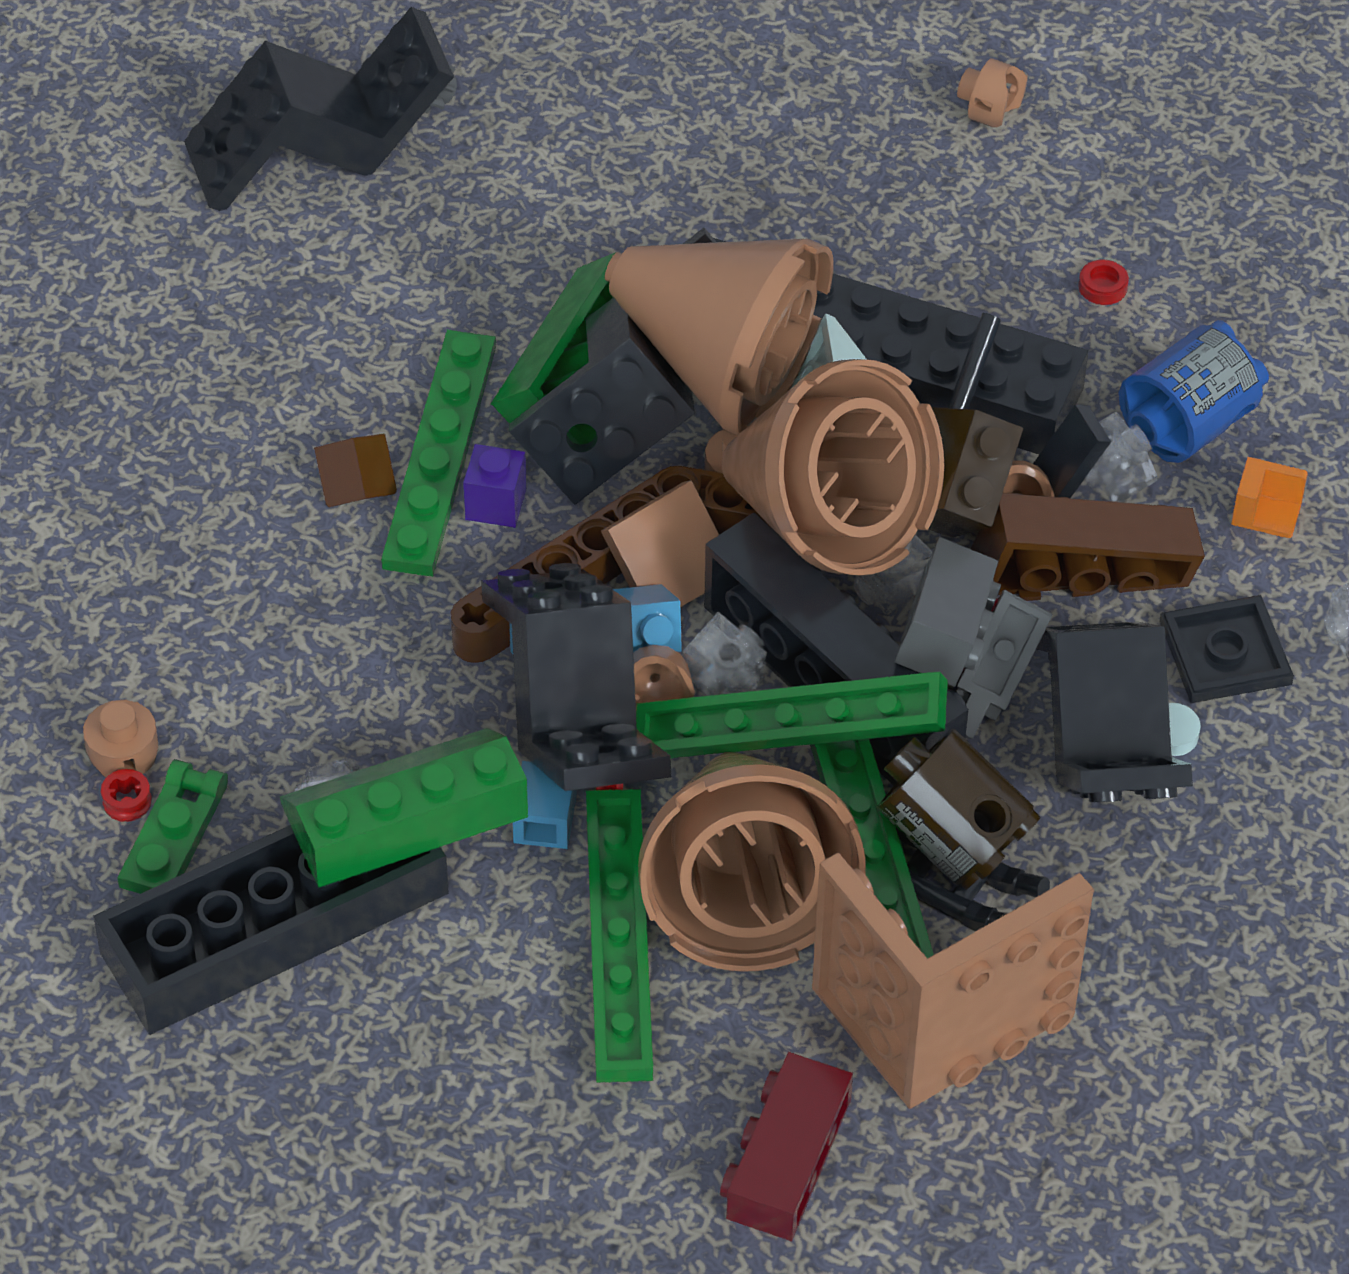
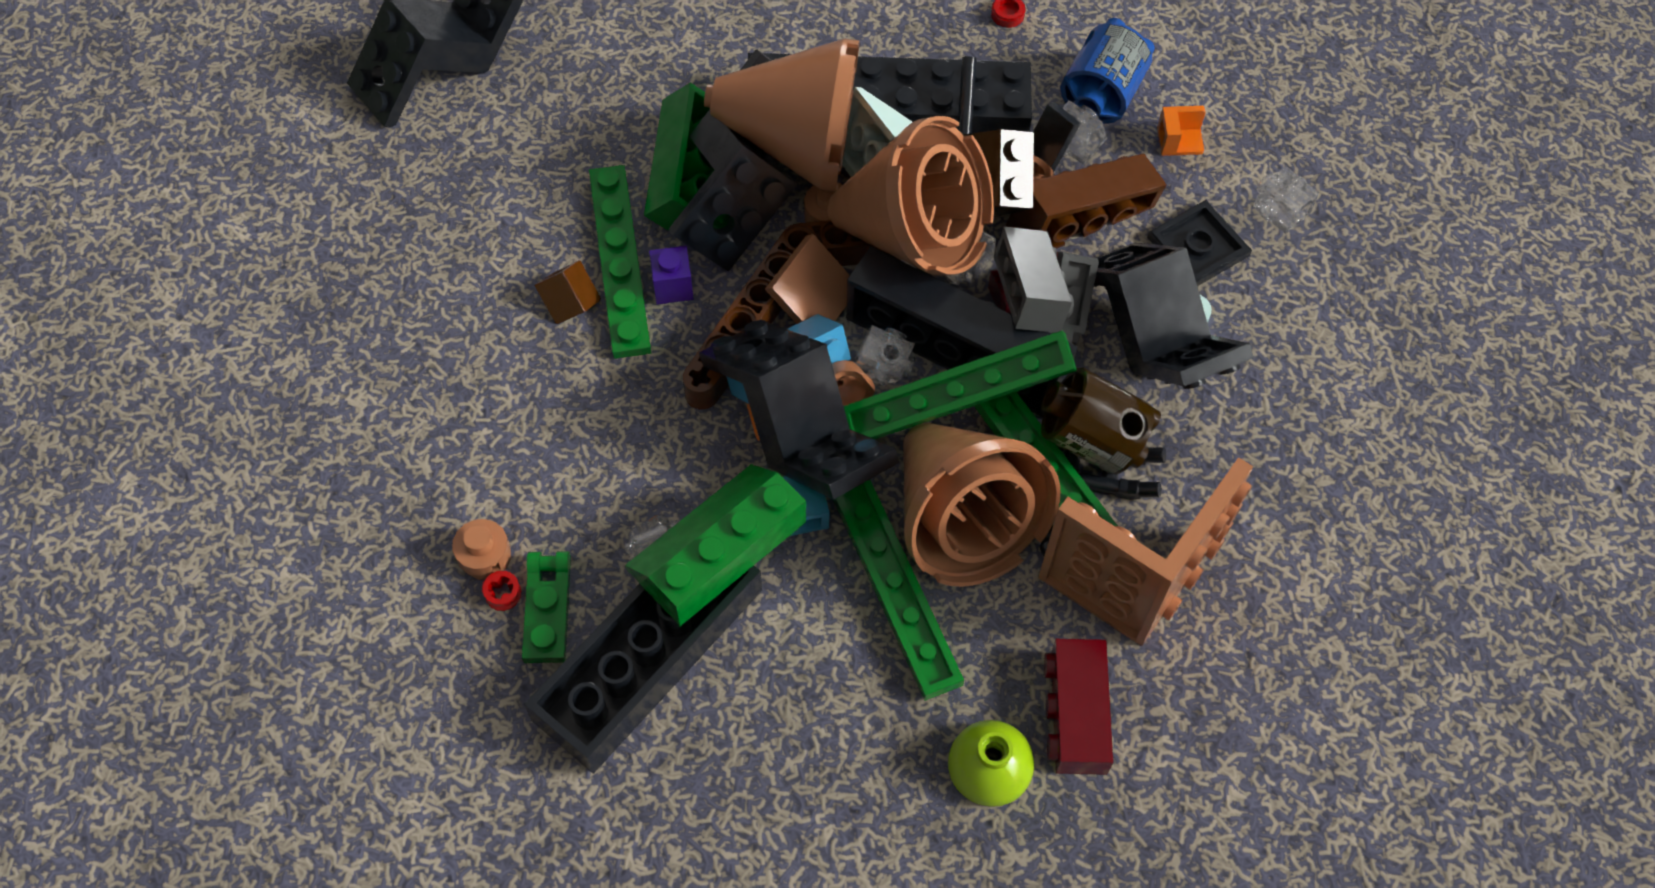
camera: 20 degrees left, 10 degrees up
(646, 1192) = (987, 780): none -> lime piece

